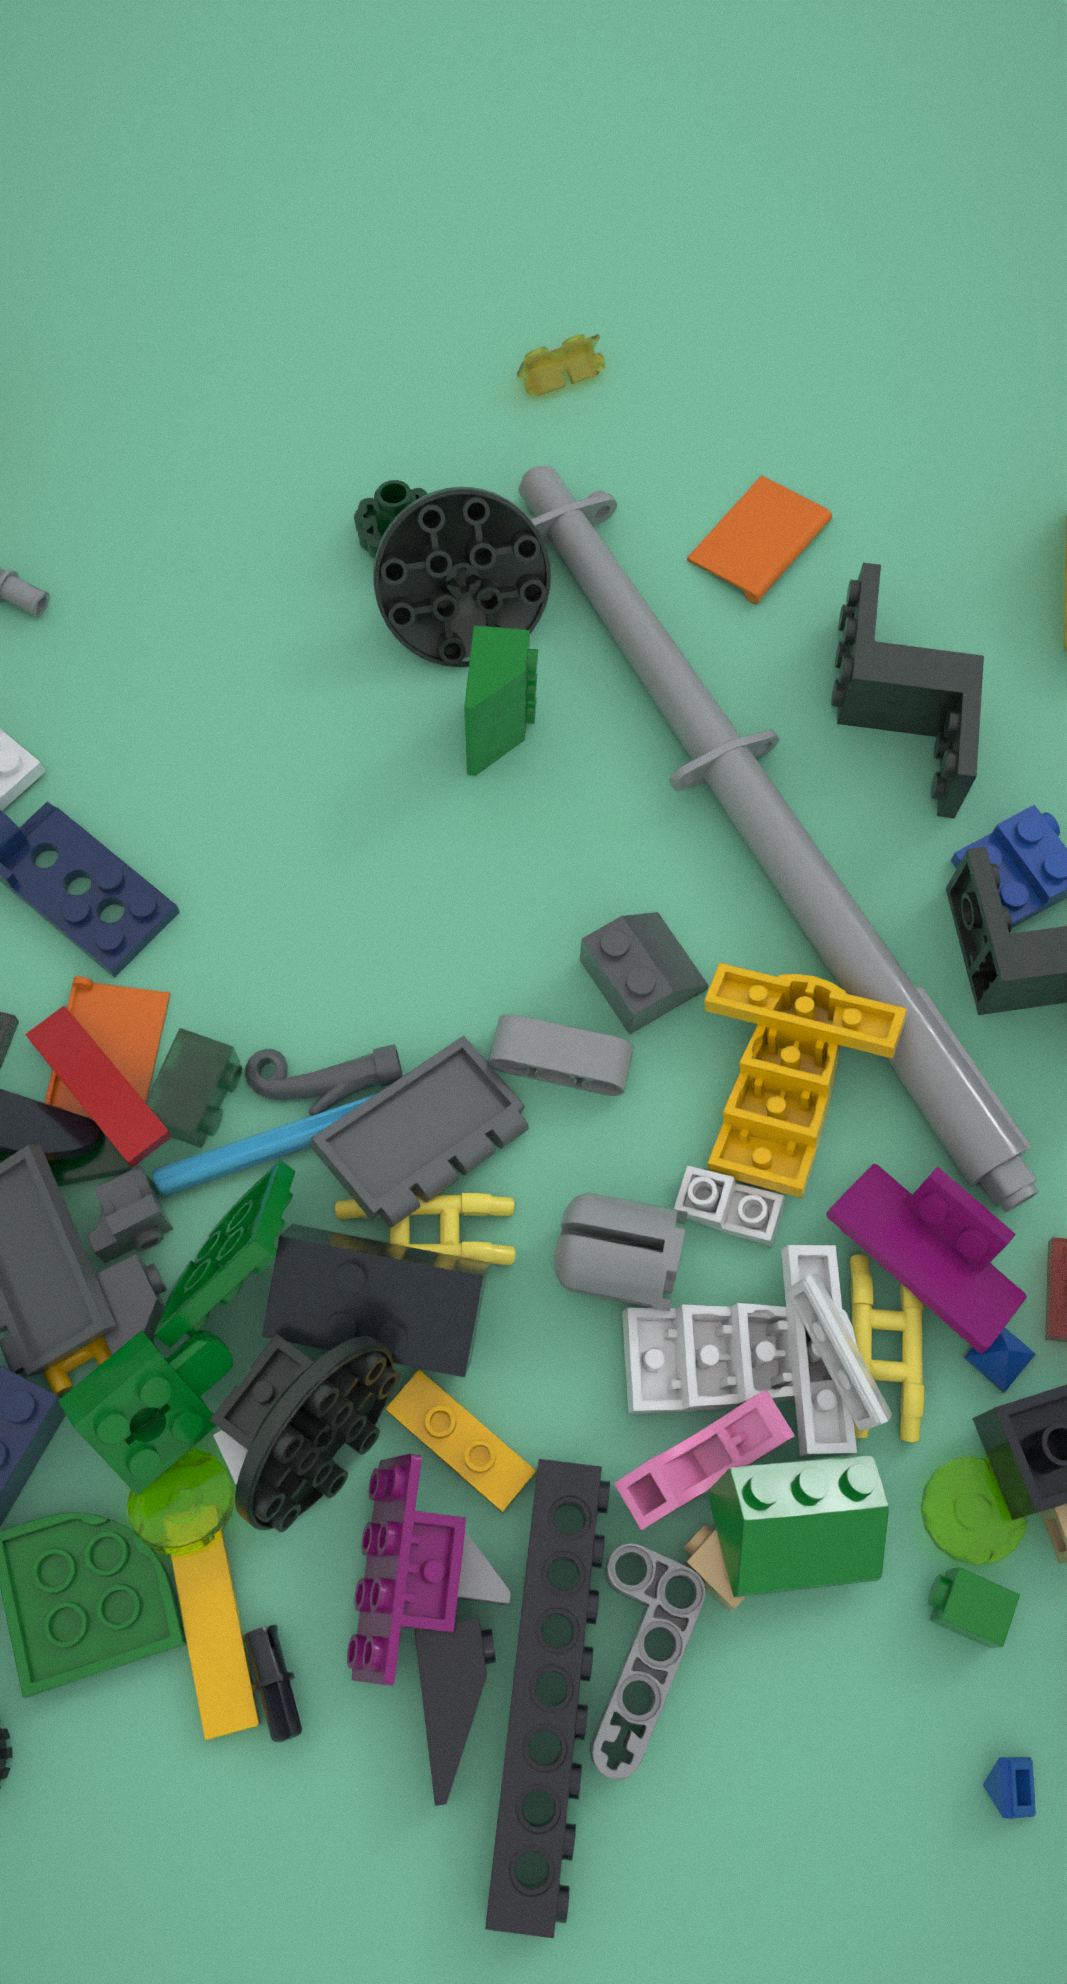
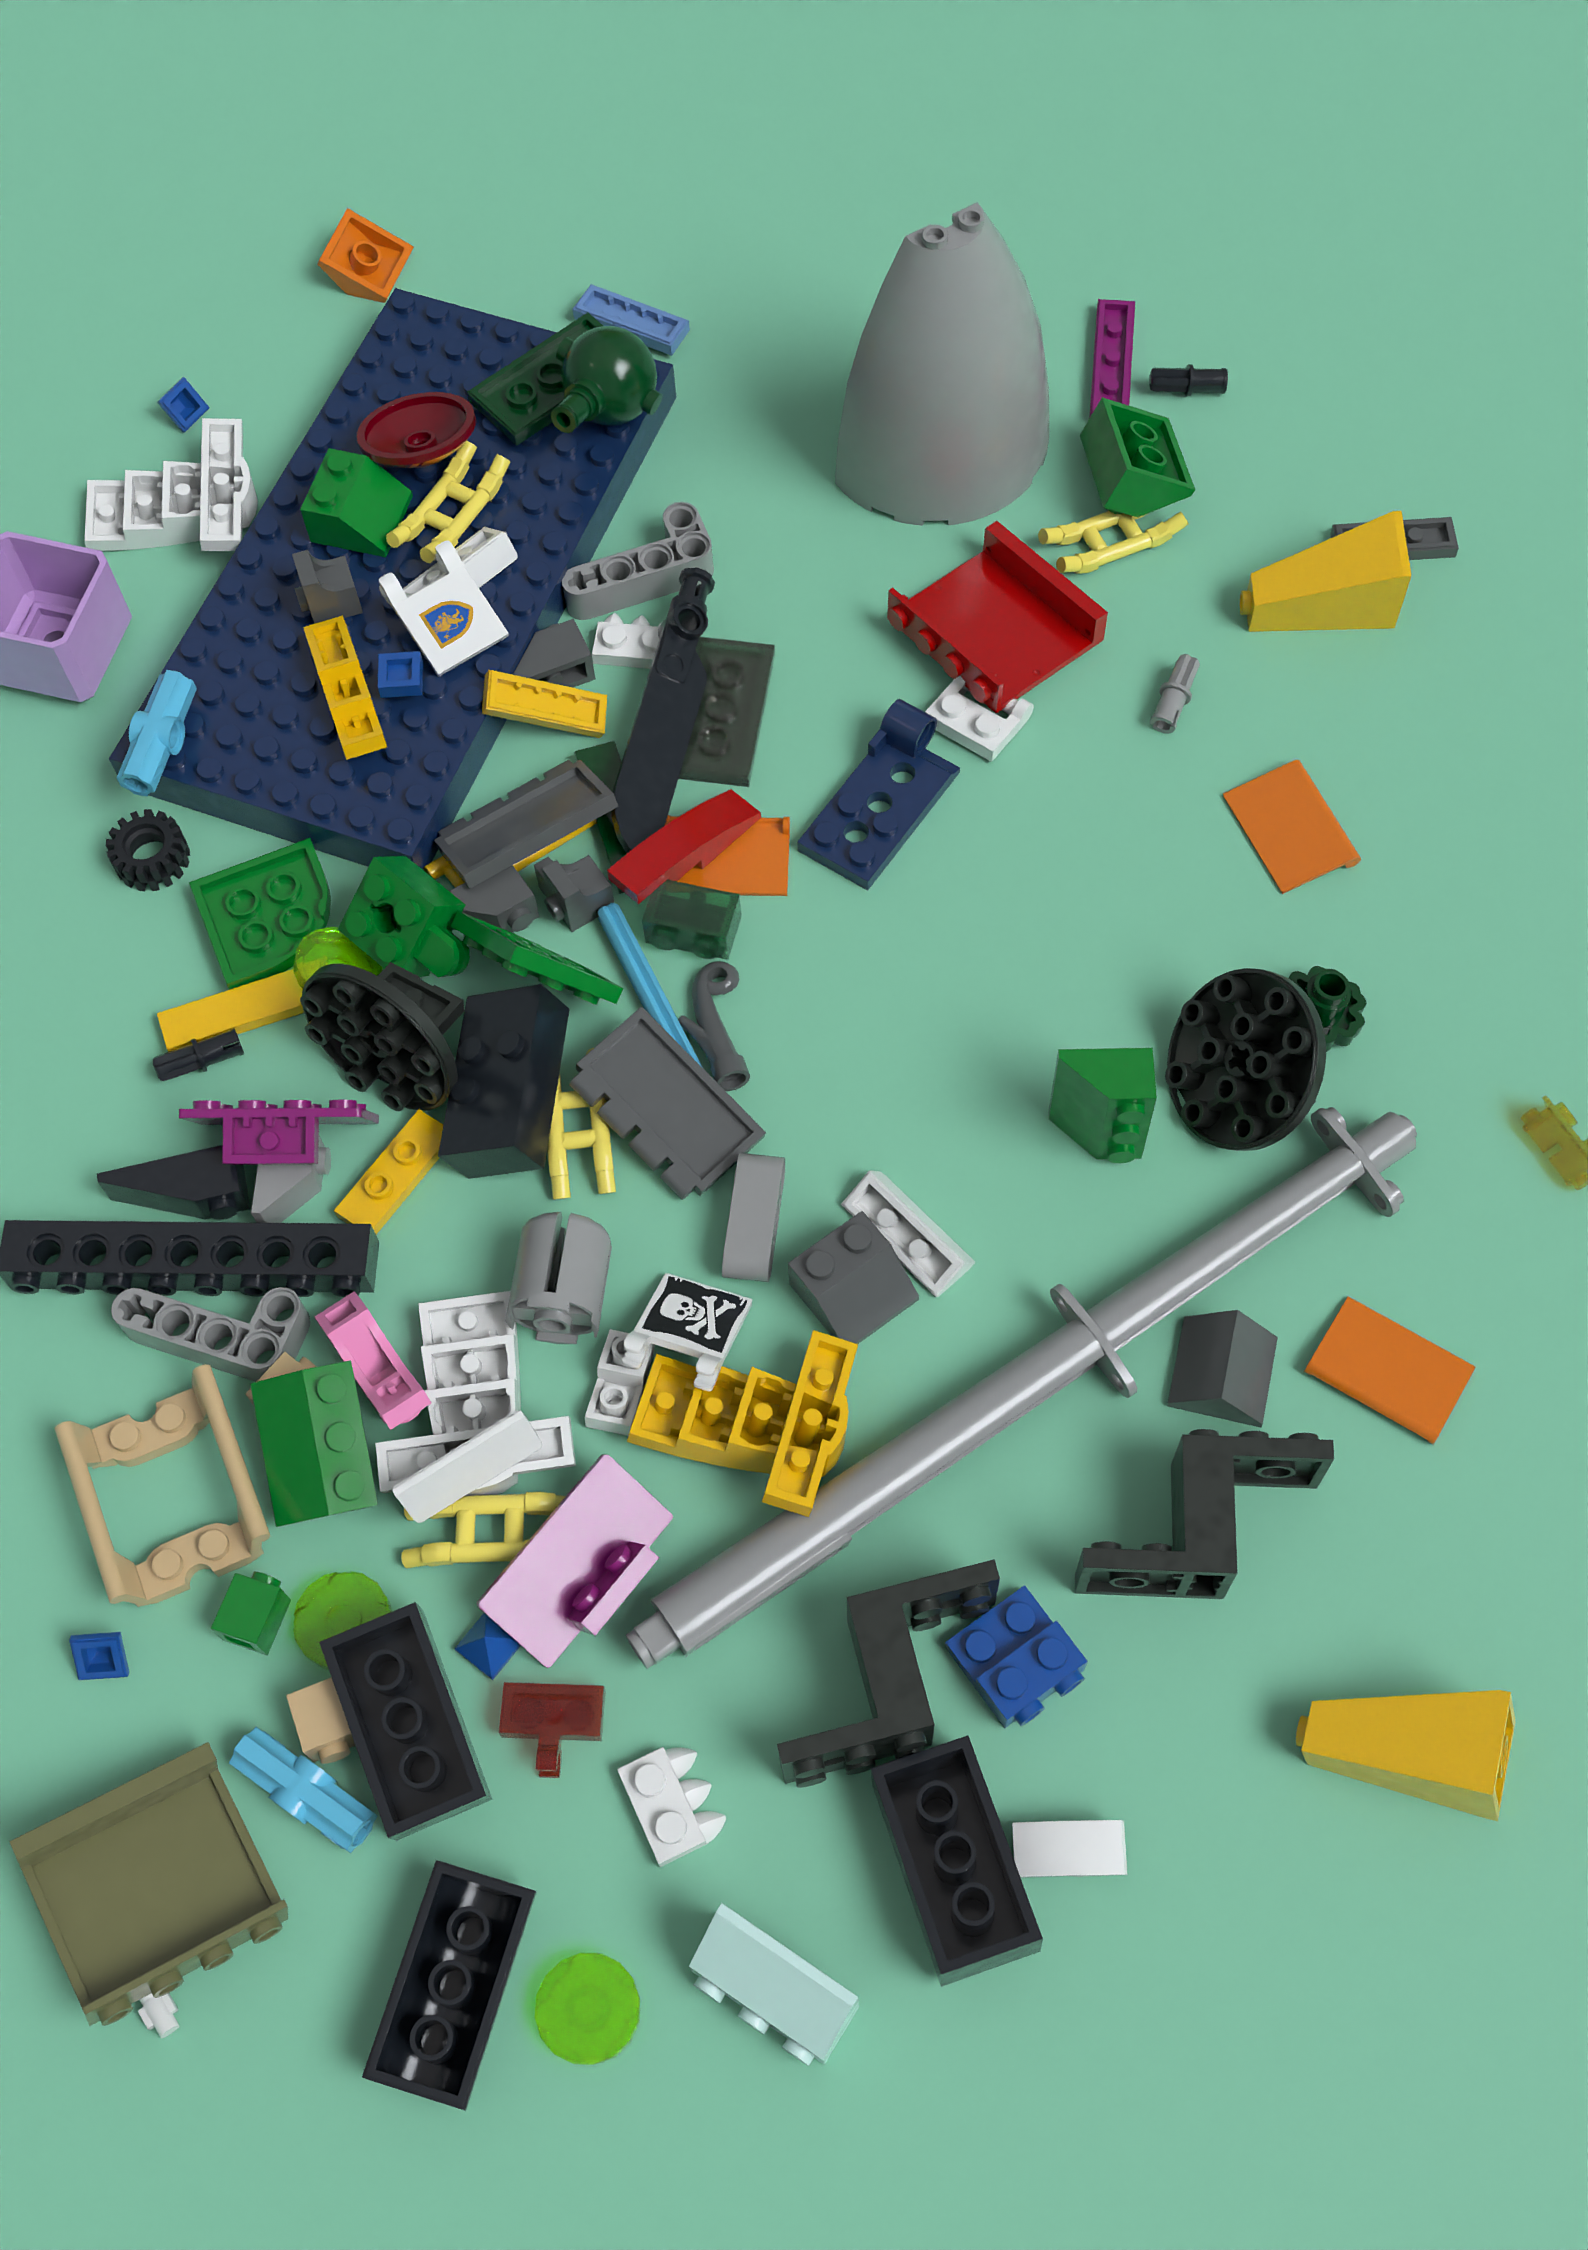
camera: 90 degrees right, 5 degrees down
(184, 516) = (1291, 826): none -> orange piece
(558, 933) = (913, 1235): none -> white slope
(676, 1123) = (689, 1321): none -> flag
(752, 666) = (1223, 1367): none -> dark grey slope
(908, 1704) = (133, 1443): none -> tan piece

